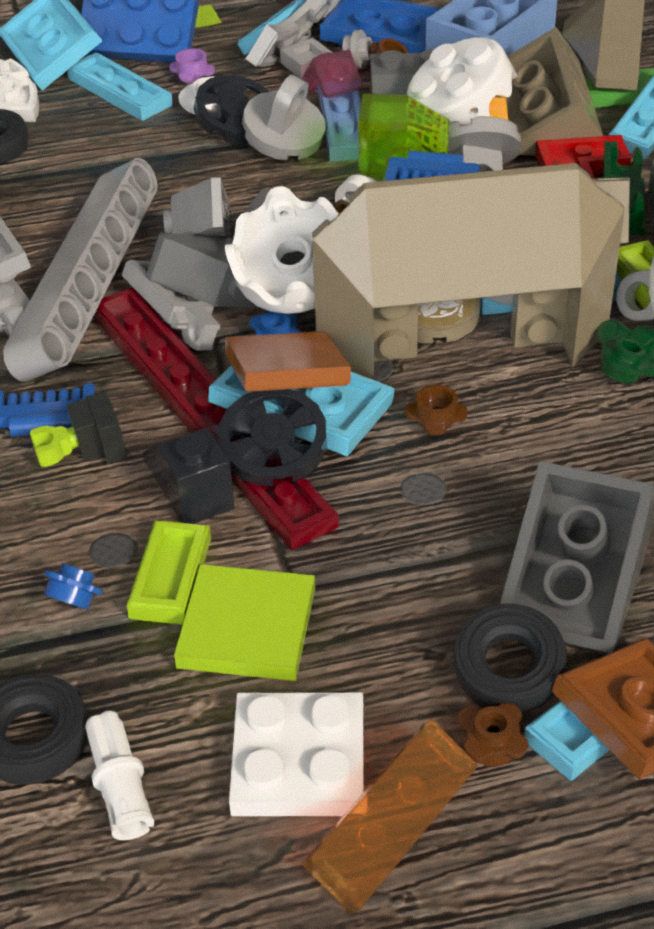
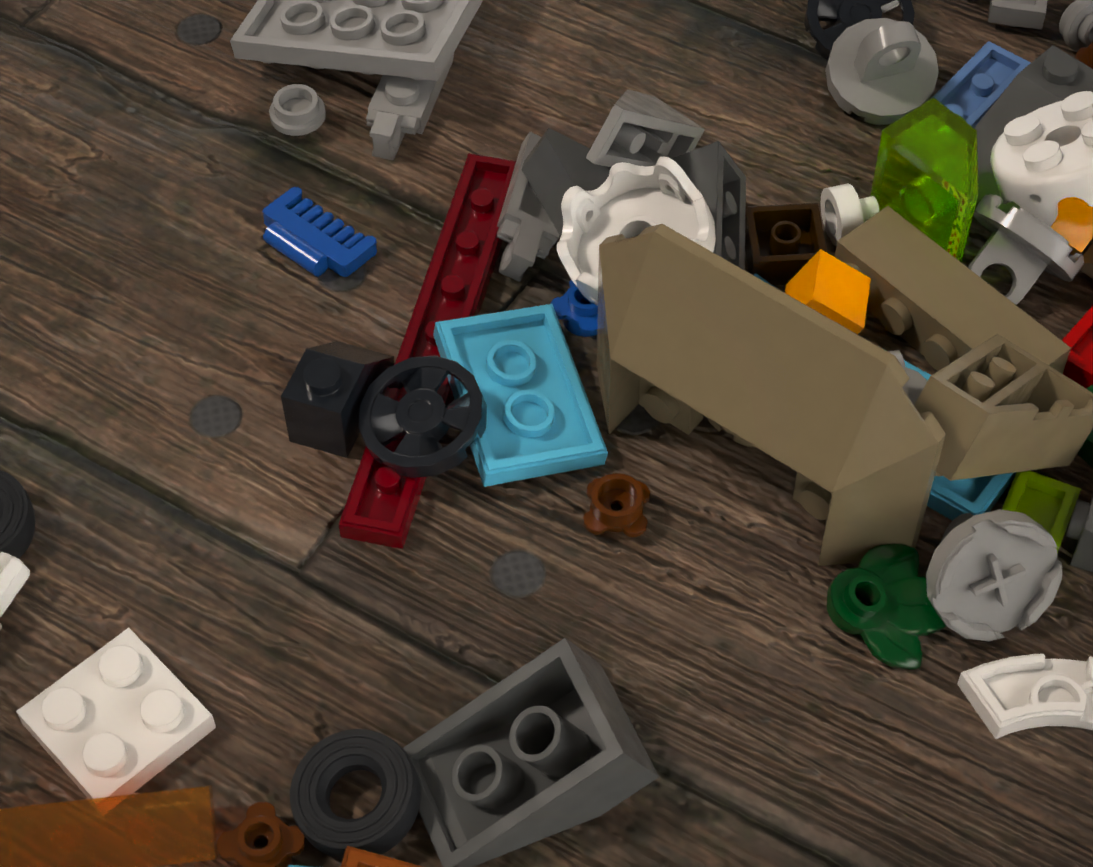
camera: 45 degrees right, 10 degrees up
(71, 586) = (128, 425): blue plate -> none
(80, 272) = (478, 106): light grey beam -> none
(92, 430) = (316, 286): pearl dark grey piece -> none
(168, 572) = (223, 474): lime tile -> none
(246, 622) = (219, 572): lime tile -> none
(287, 361) = (513, 349): dark orange tile -> none
(334, 73) = (1006, 41): clear pink bracket -> none
(428, 164) = (927, 236): blue piece -> none

